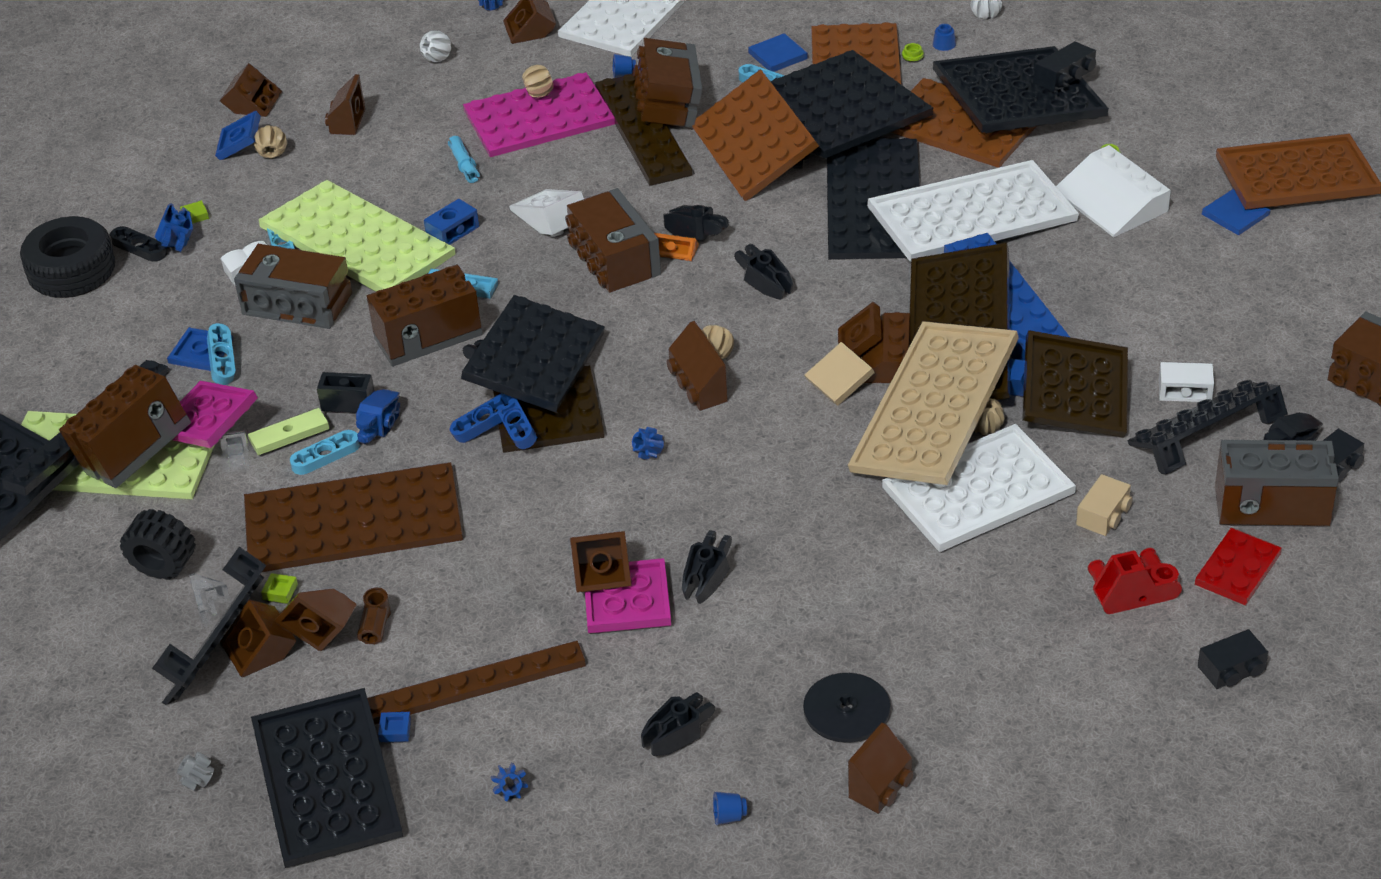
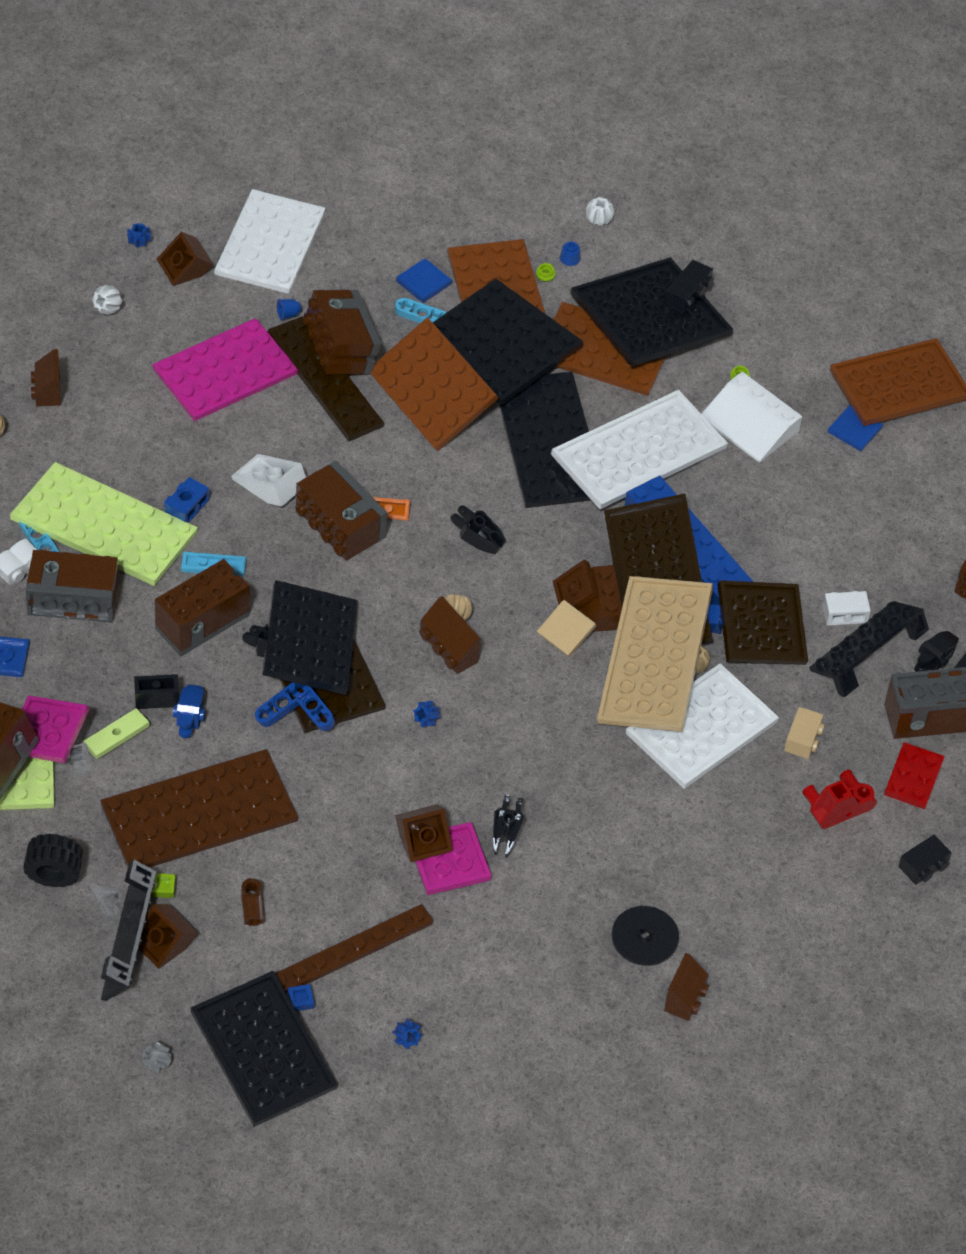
camera: 20 degrees left, 10 degrees up
(218, 362) = (27, 670): medium azure beam -> none
(316, 616) = (215, 913): reddish brown slope -> none
(330, 443) = (156, 741): medium azure beam -> none
(465, 163) = (177, 432): medium azure pin -> none
(537, 81) = (222, 339): tan piece -> none
(676, 724) = (522, 968): black hinge -> none
(694, 222) = (404, 482): black hinge -> none
(728, 807) = (578, 1032): blue hat -> none

